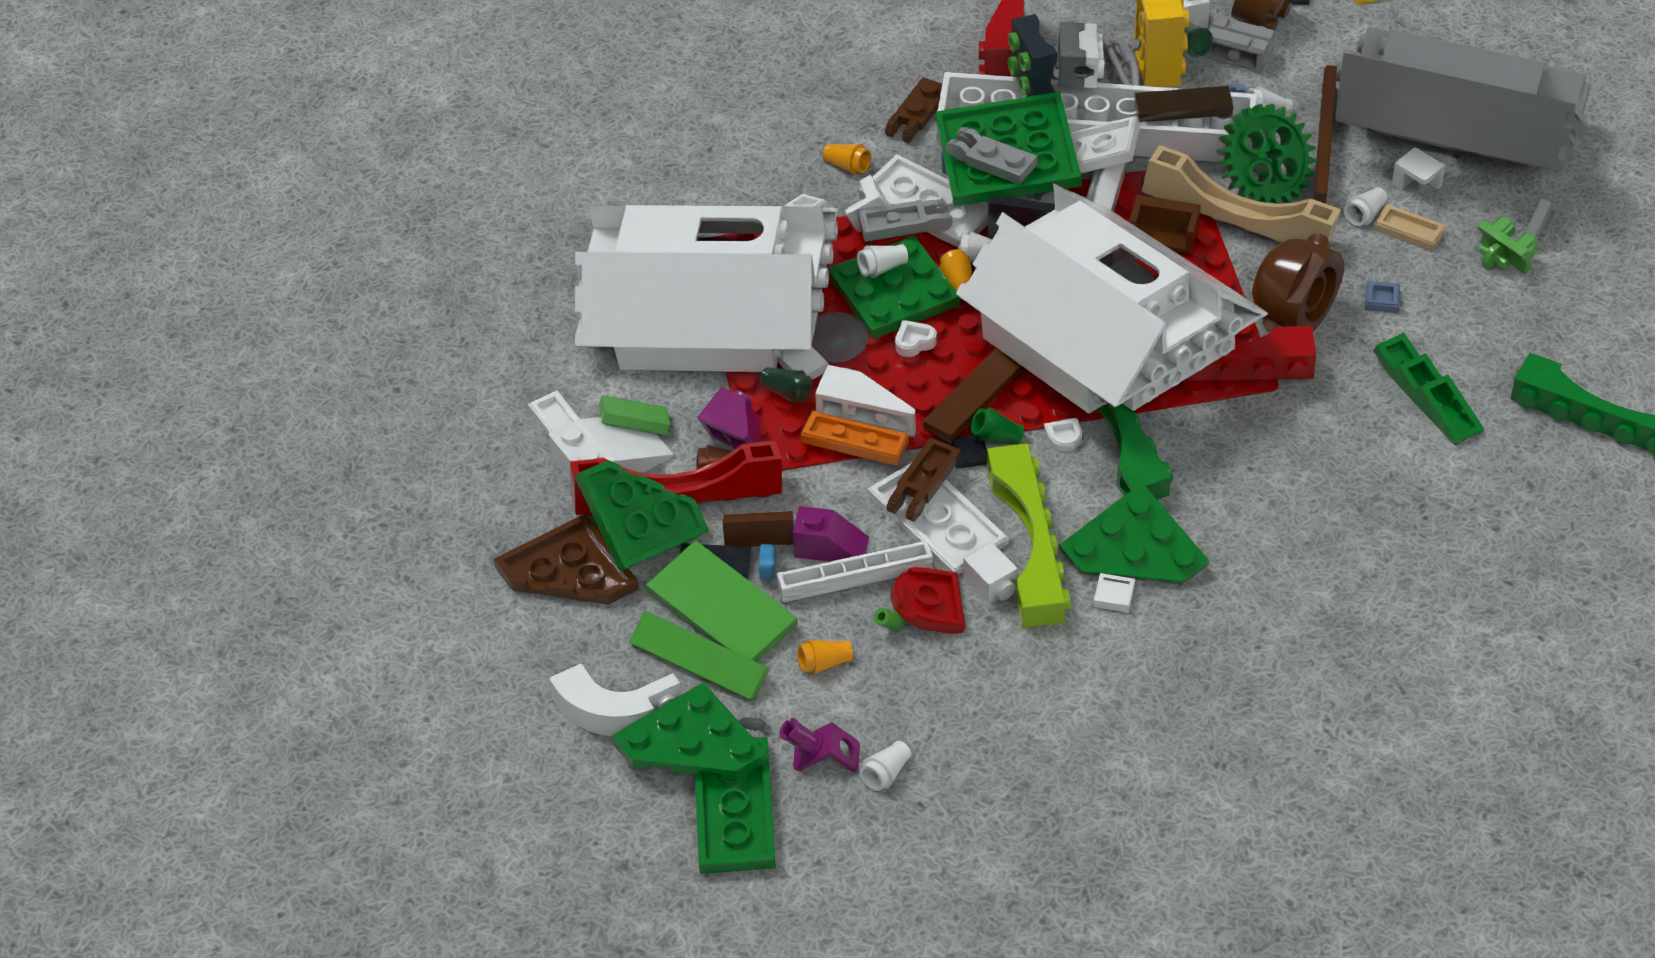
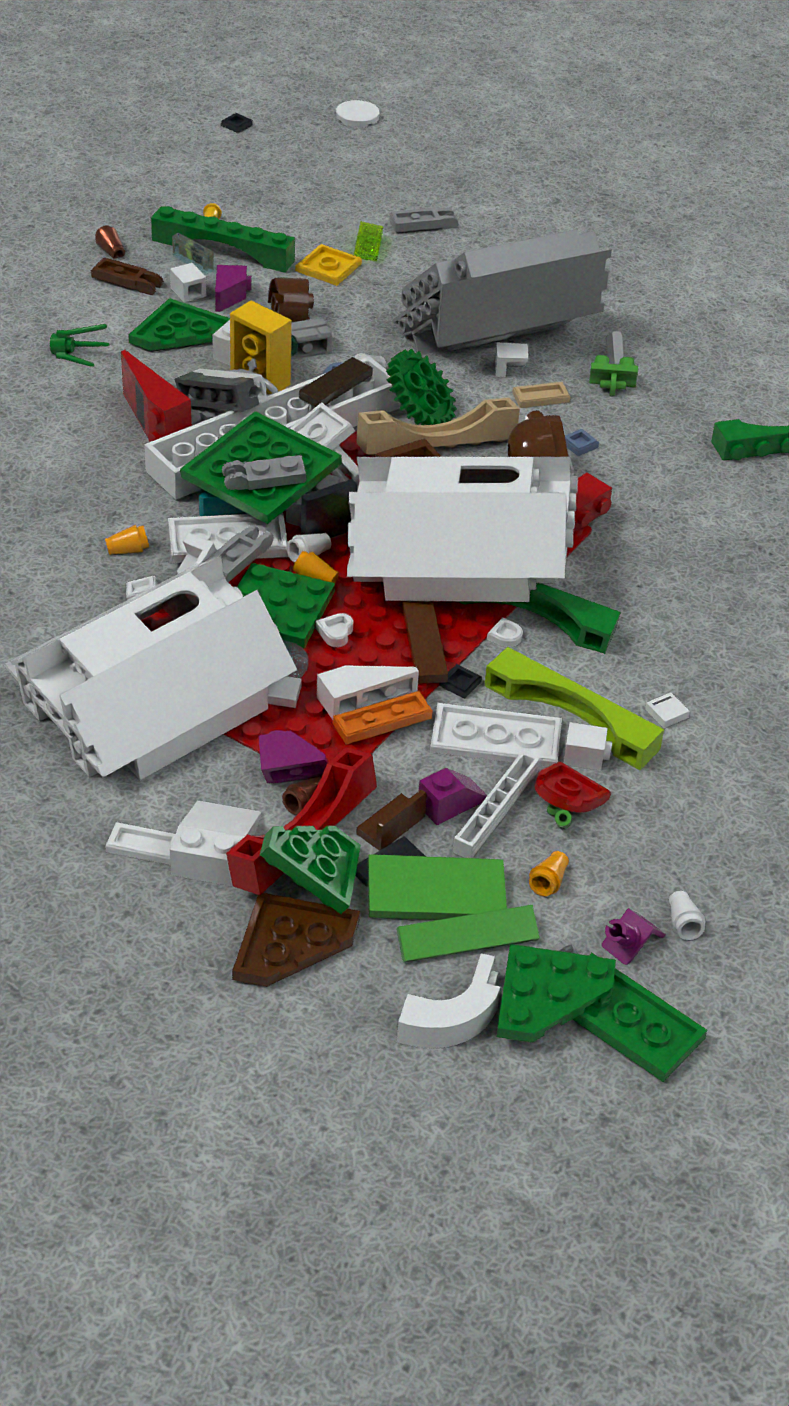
camera: 50 degrees left, 5 degrees down
(634, 415) = (205, 800): bright green tile -> none
(767, 561) = (431, 837): dark azure tile -> none
(787, 383) = (293, 708): clear green cone -> none
(880, 259) = (262, 582): white cone -> none
(916, 109) = (134, 485): reddish brown hinge -> none
(924, 477) = (467, 711): reddish brown hinge -> none
(995, 427) = (466, 652): green cone -> none
(1031, 57) = (214, 397): black brick -> none
(1135, 542) = (646, 667): green plate -> none
(1325, 134) = (397, 340): reddish brown tile -> none
(1365, 206) = (503, 389): white cone -> none
(1428, 389) = (685, 480): green slope -> none

